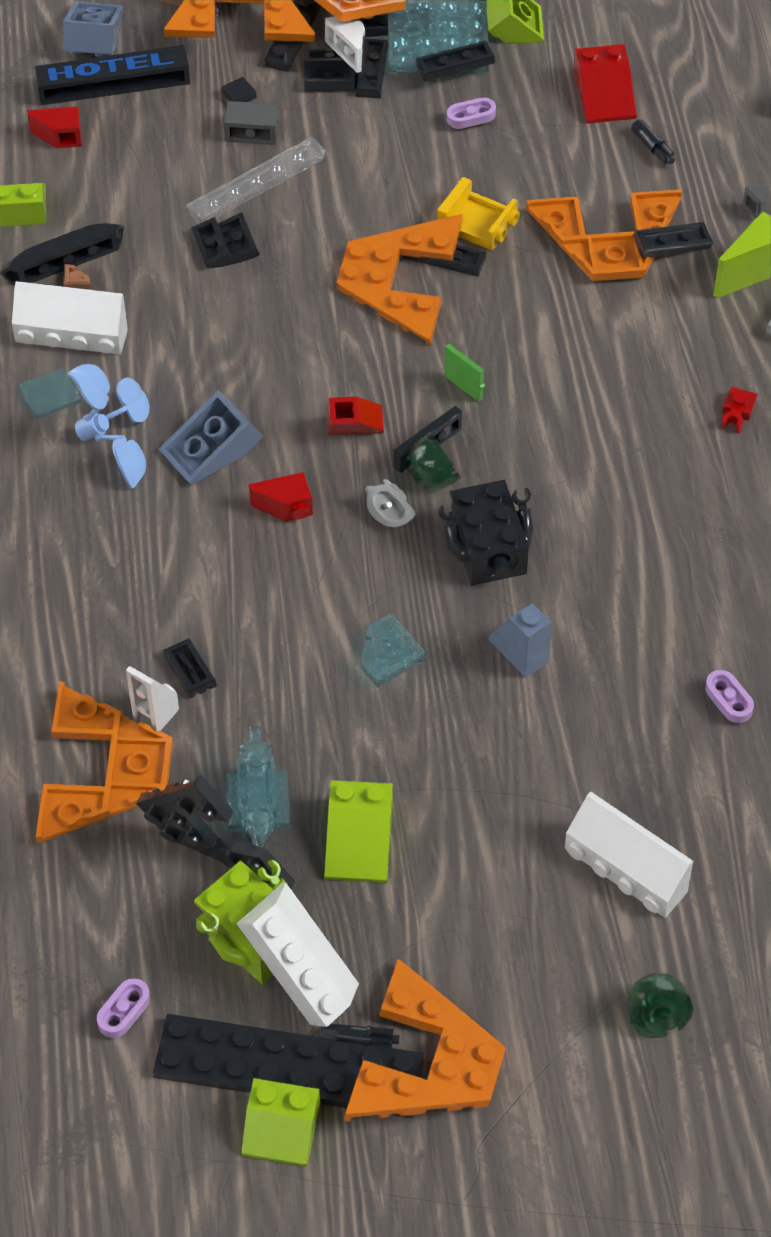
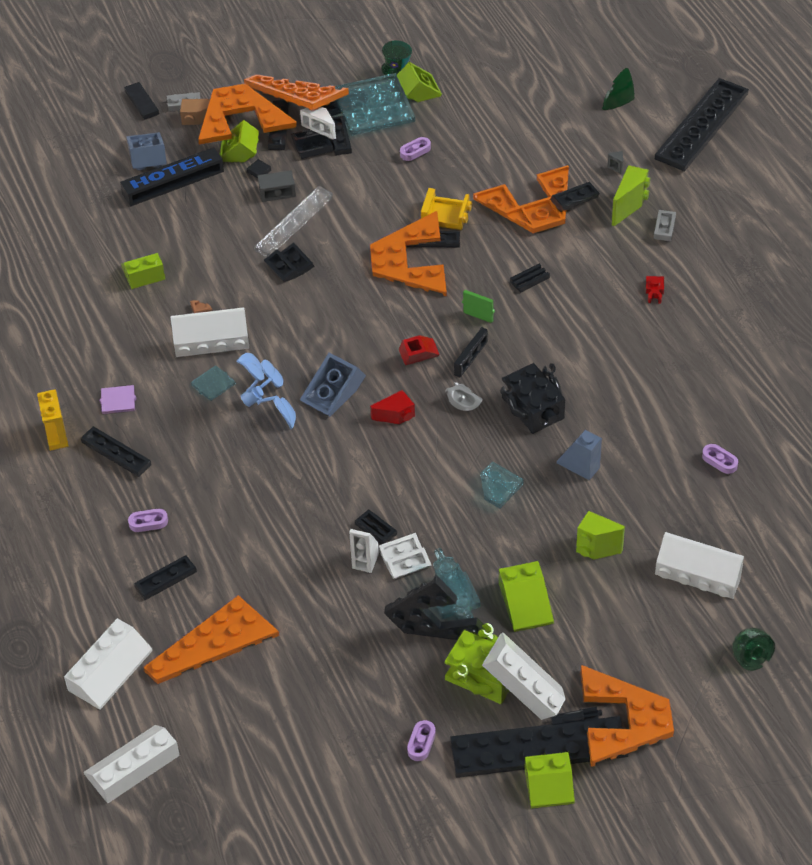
camera: 15 degrees left, 5 degrees down
(56, 126) = (148, 216): red slope -> none
(71, 249) = (190, 290): black brick -> none
(136, 764) = (367, 593): orange wing -> none
(211, 722) = (404, 556): none -> white slope
(227, 50) = (242, 144): none -> lime slope
(431, 464) = (481, 365): clear green cylinder -> none
(455, 60) = (393, 118): black tile -> none
(497, 770) = (599, 537): none -> lime slope
(558, 344) = (527, 276): none -> black tile
(604, 83) = (492, 112): red slope -> none
(656, 145) = (538, 141): black piece -> none

